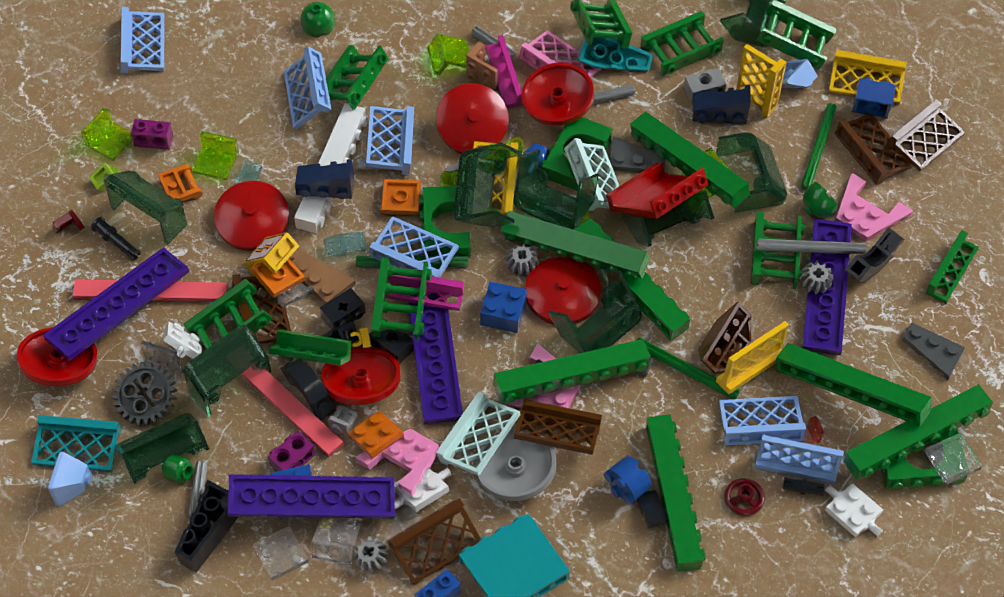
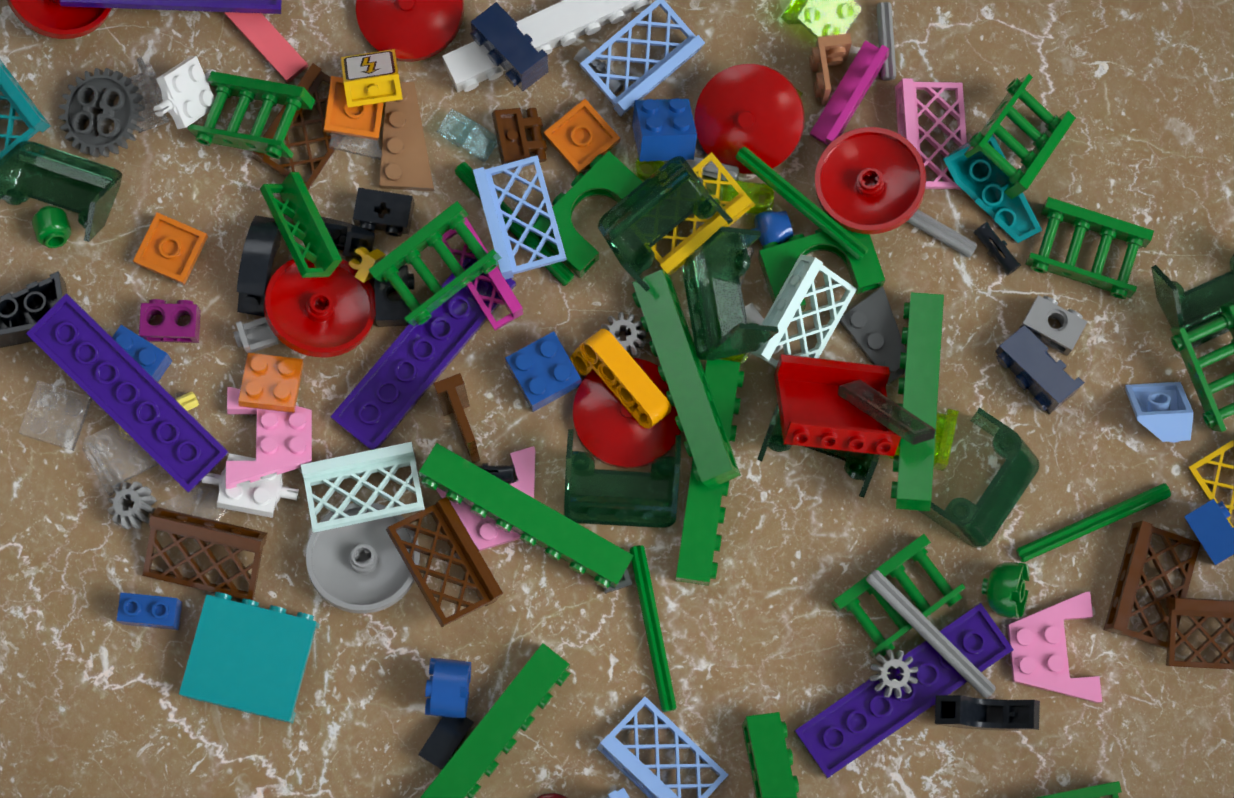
camera: 45 degrees right, 20 degrees up
(198, 484) = (56, 263): light grey axle -> none
(222, 364) = (194, 164): clear green windscreen -> none
(252, 423) = (170, 248): none -> orange plate
(294, 410) = (226, 253): coral tile -> none
(369, 221) = (512, 137): none -> reddish brown plate
(438, 155) = (664, 129): none -> blue brick
(479, 348) = (453, 399): none -> reddish brown fence
(538, 129) = (801, 203): none -> green axle
(543, 269) = (622, 376): none -> light orange beam
(643, 78) = (985, 234): none -> black pin
(682, 170) = (886, 412): none -> clear smoke tile
(726, 337) = (719, 644): reddish brown wedge -> none
(753, 359) = (717, 695): yellow fence -> none
(771, 85) = (1103, 389): yellow fence -> none

